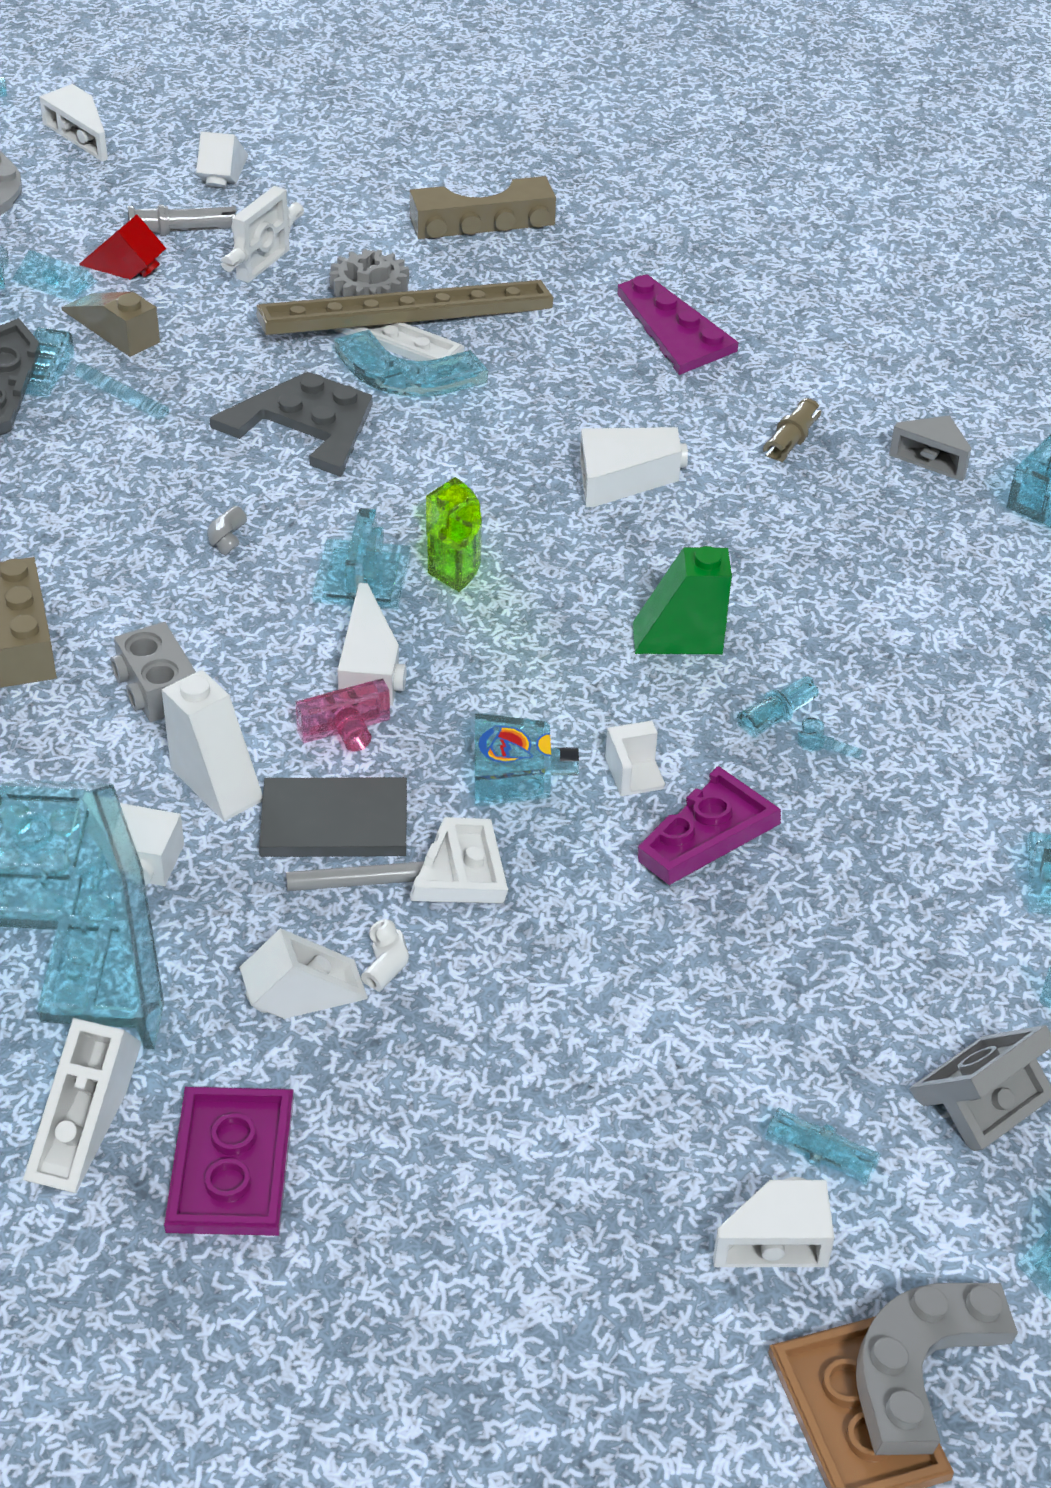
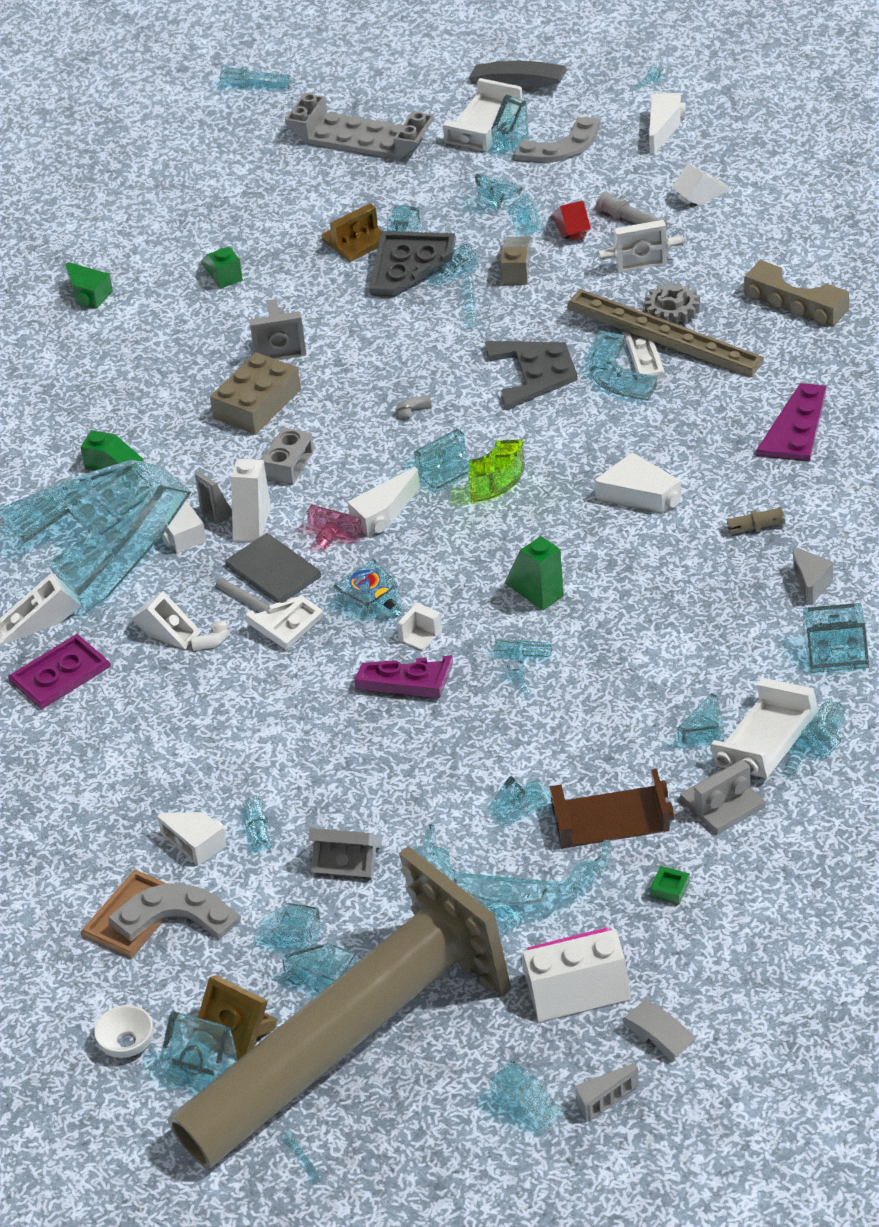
camera: 55 degrees right, 0 degrees up
(149, 781) = (211, 499): none -> light grey slope

